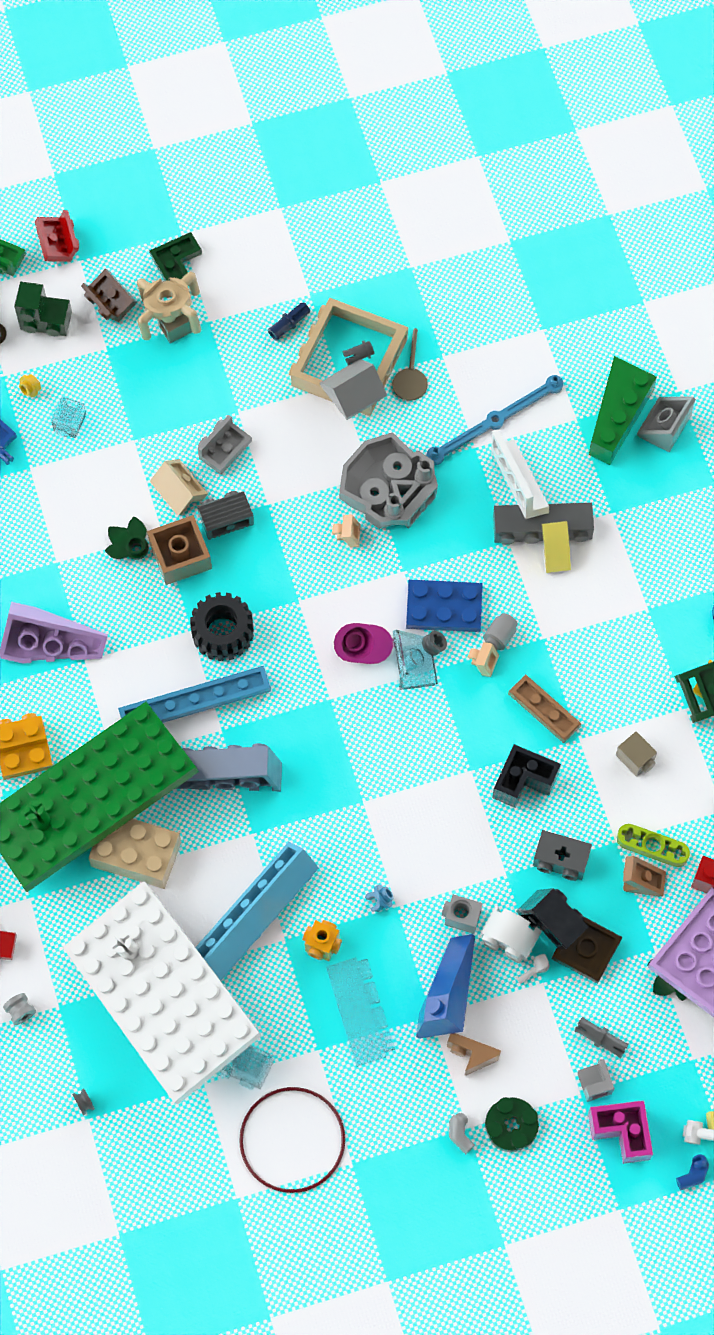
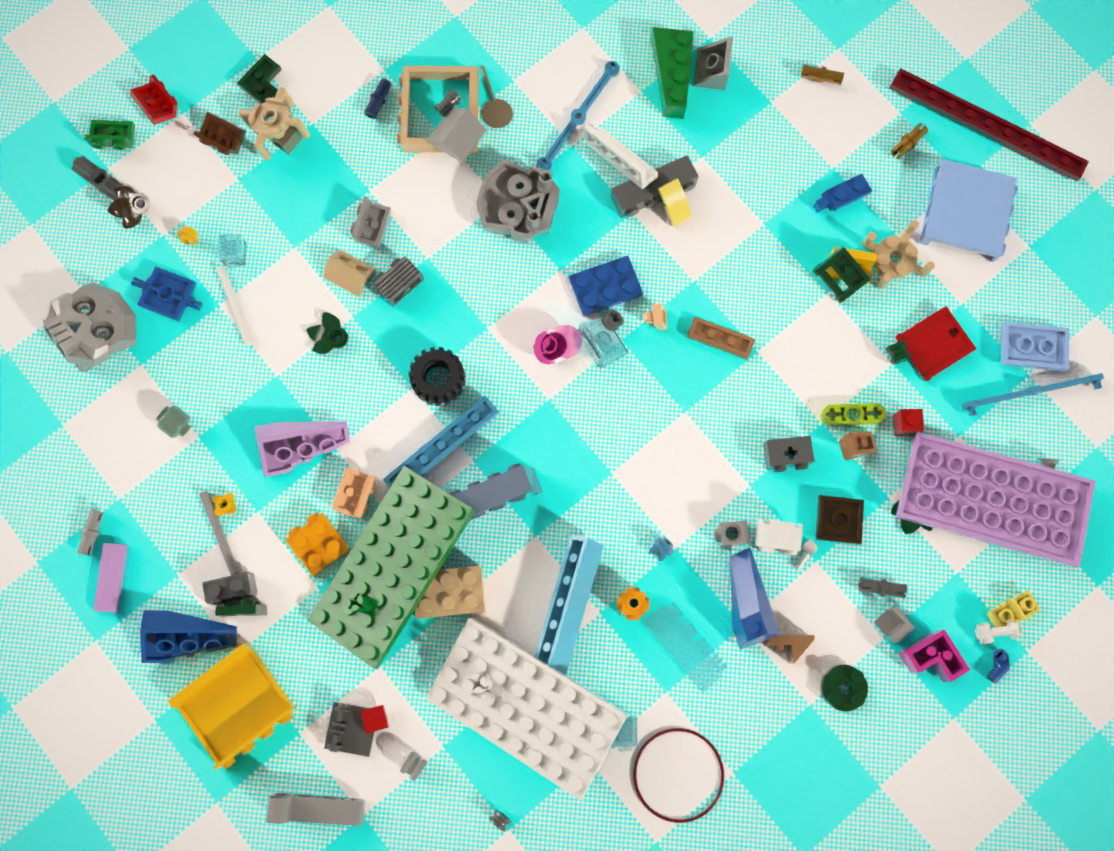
camera: 25 degrees left, 10 degrees up
(41, 313) = (169, 170): dark green brick -> none
(45, 475) = (234, 306): none -> white bar
(81, 709) = (353, 493): none -> light nougat bracket
(179, 550) = (374, 326): brick -> none
(348, 530) = (502, 255): light nougat tile -> none
(457, 1133) = (805, 712): light grey arm -> none
(501, 631) = (660, 289): light grey brick -> none
(522, 770) = (728, 397): black brick -> none
(553, 916) = (806, 507): black brick -> none
(636, 754) = (810, 346): dark tan brick -> none

